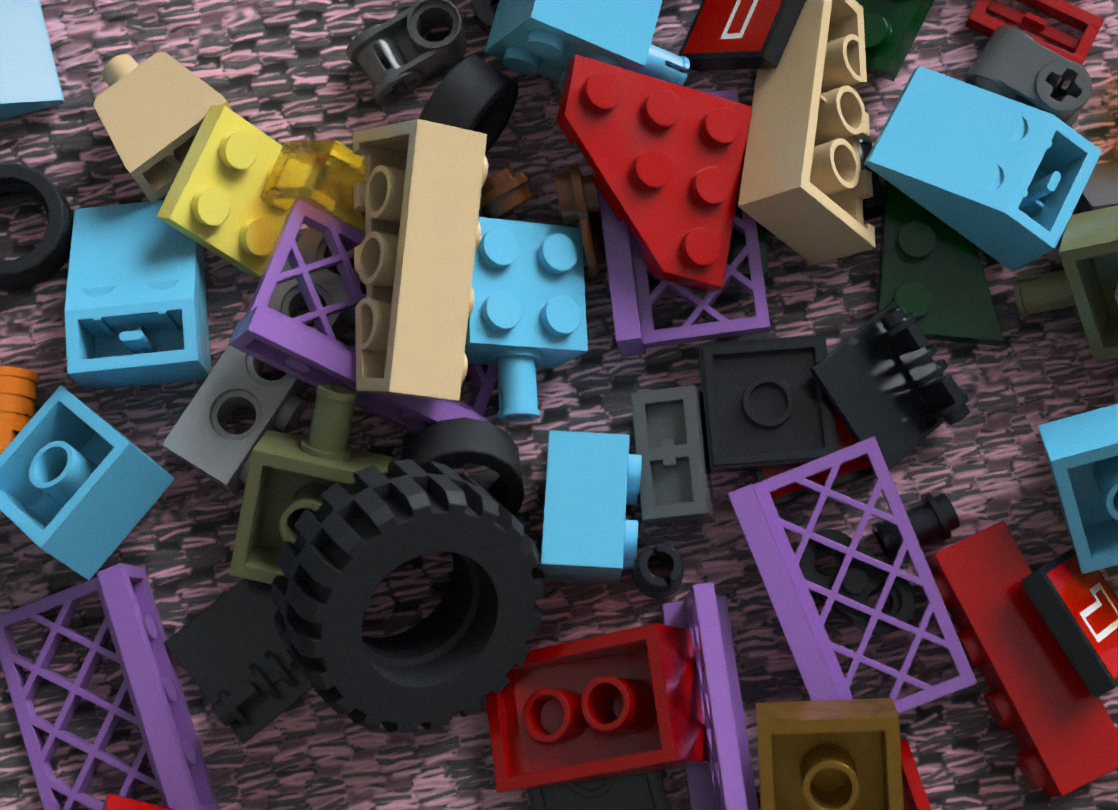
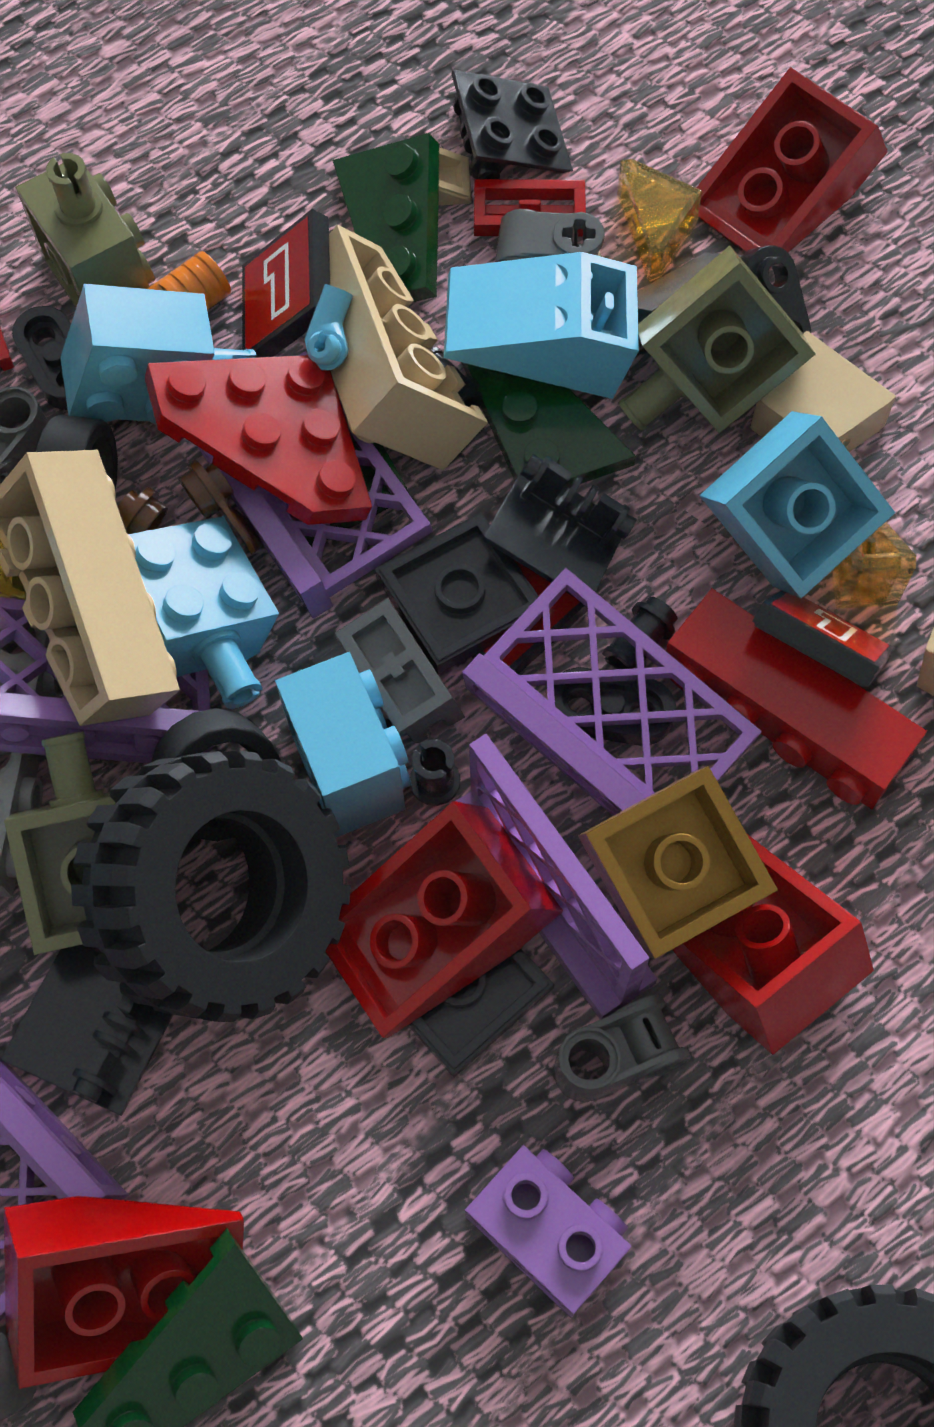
camera: 25 degrees left, 10 degrees down
(760, 91) = (325, 336): none -> medium azure arm

